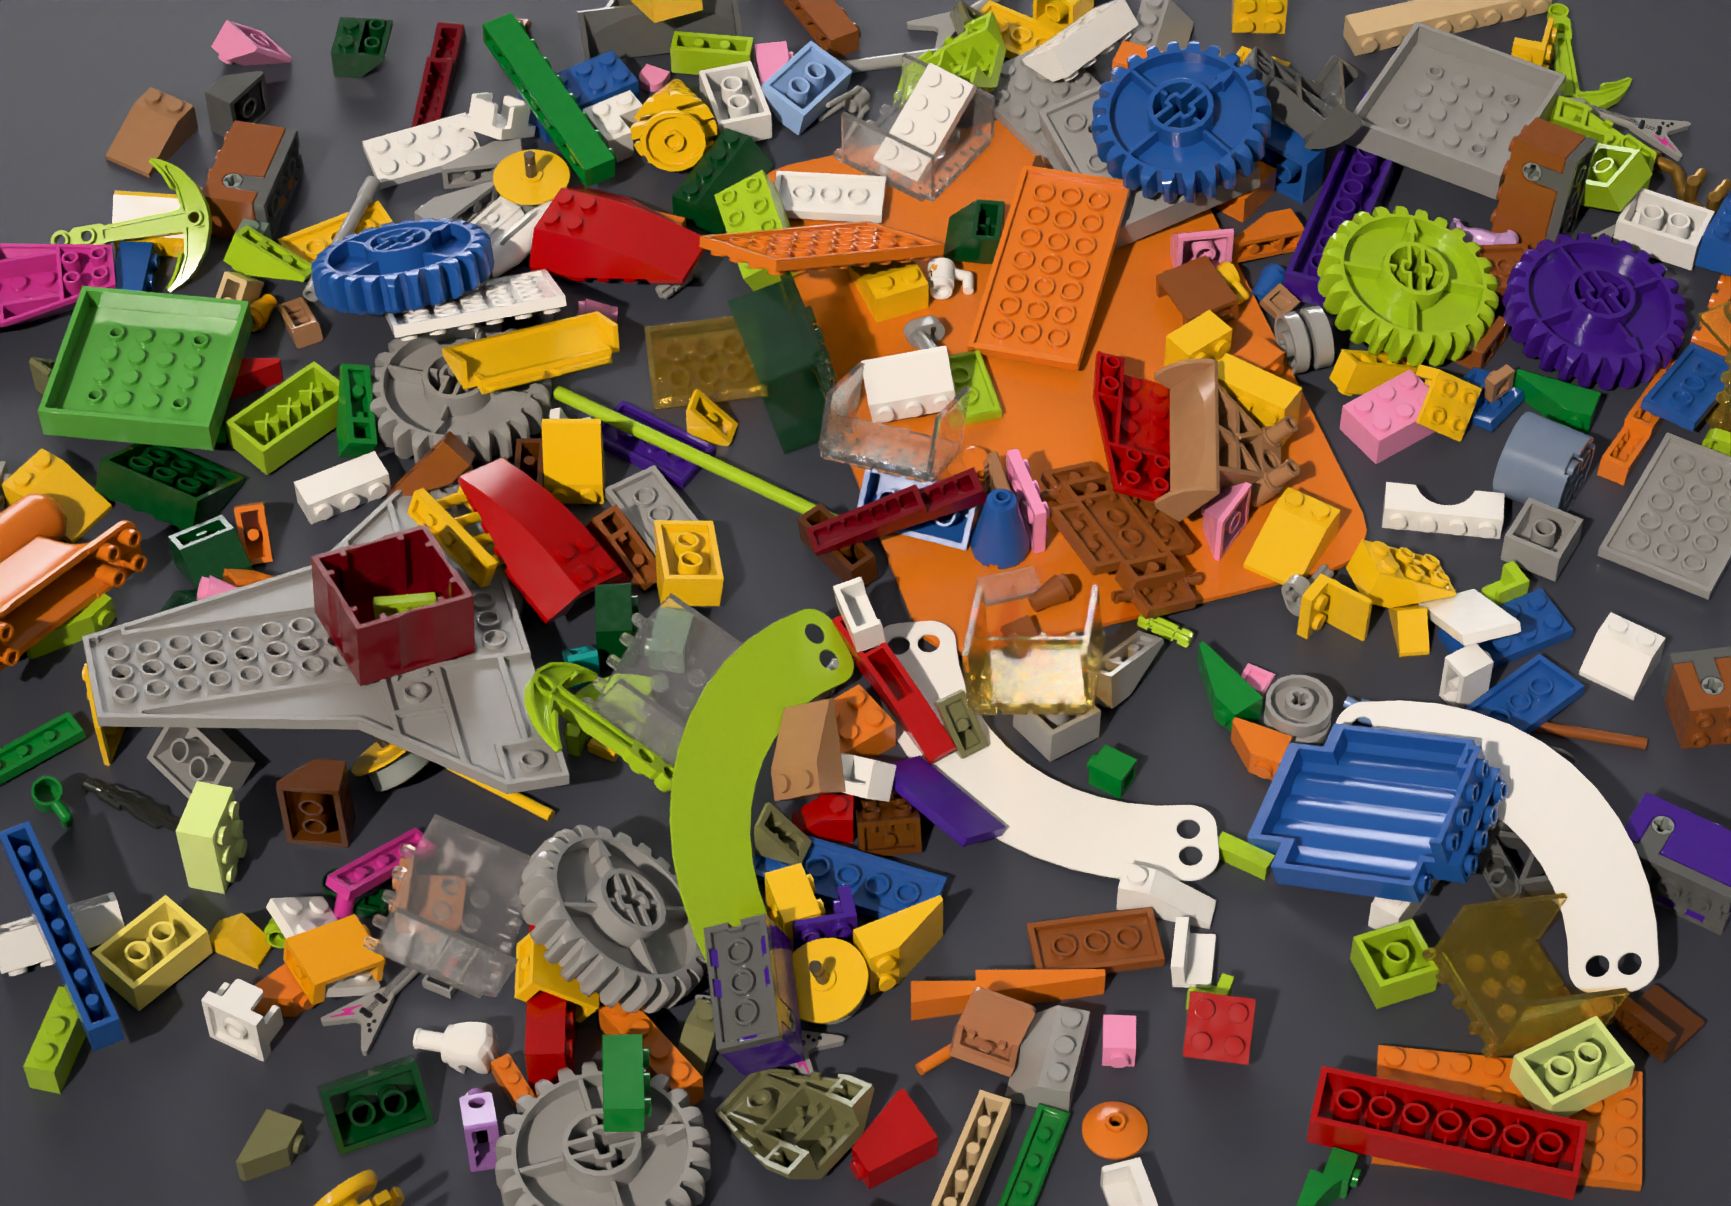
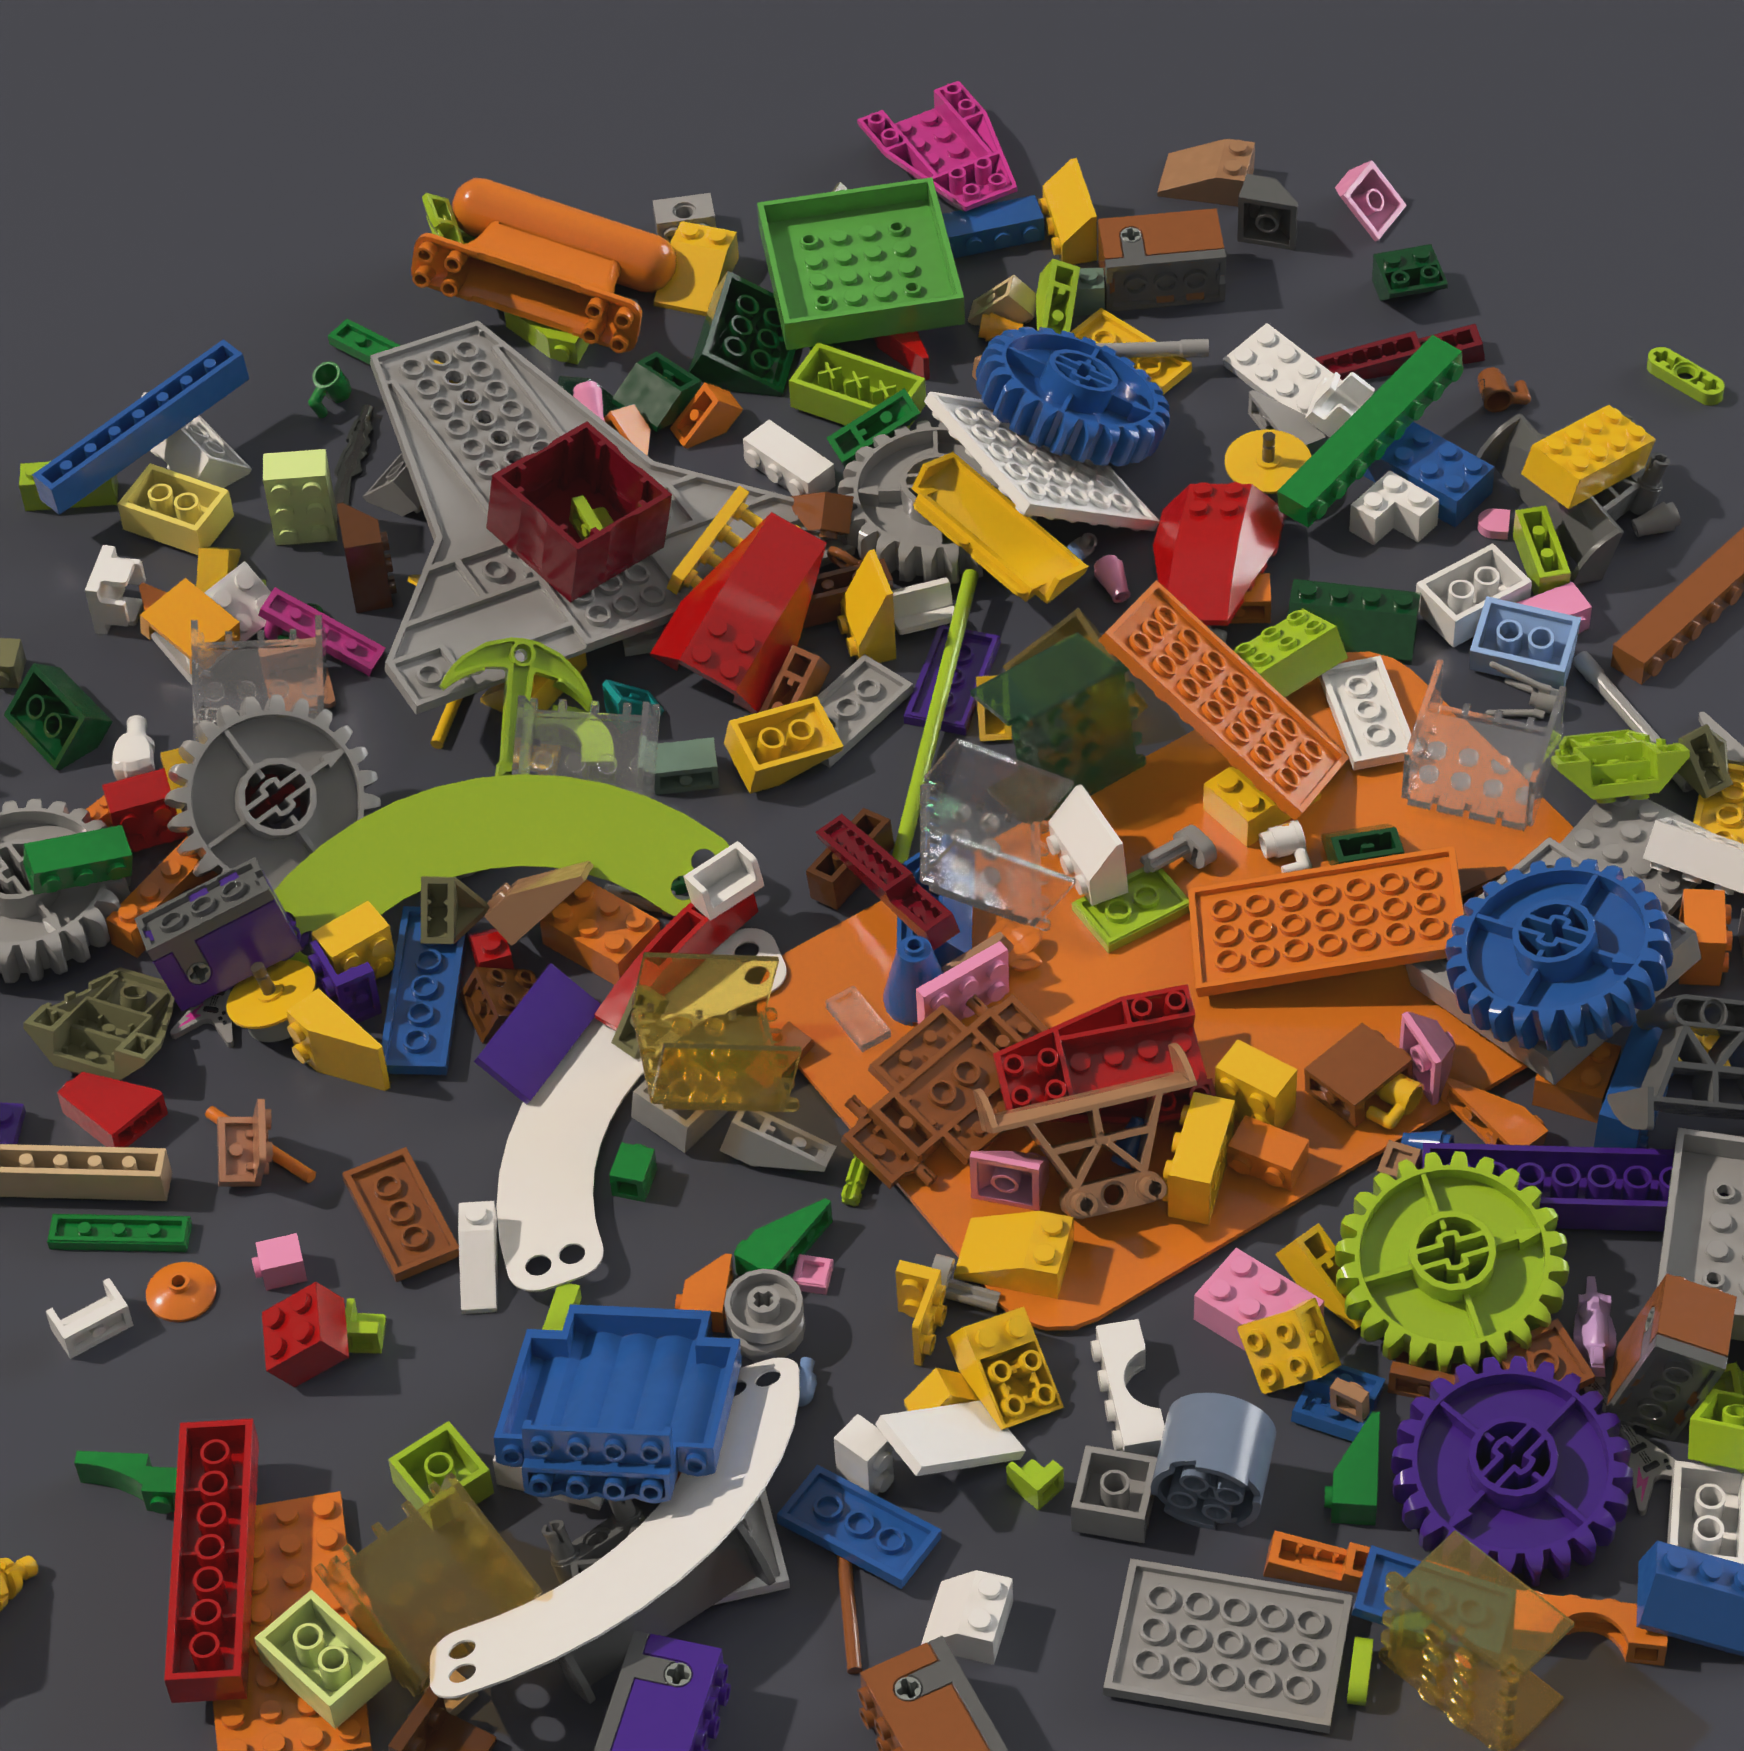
camera: 75 degrees right, 0 degrees up
(174, 222) = (1068, 223): lime piece -> none
(370, 1010) = (165, 685): light grey piece -> none
(459, 205) = (1201, 423): light grey slope -> none
(479, 1115) = (44, 782): medium lavender torso -> none
(509, 232) = (1191, 465): white plate -> none
(613, 617) = (681, 703): dark green brick -> none
(673, 128) = (1402, 546): yellow plant -> none
(867, 777) = (533, 952): white panel -> none
(933, 109) = (1487, 746): white plate -> none
(948, 998) = (316, 1143): orange slope -> none
(1050, 1058) = (242, 1214): light grey slope -> none
(1051, 593) = (854, 1053): dark orange cone -> none
(1192, 956) = (409, 1296): white panel -> none
(1305, 339) = (1326, 1187): light grey wheel -> none
(1540, 628) = (980, 1507): blue plate -> none

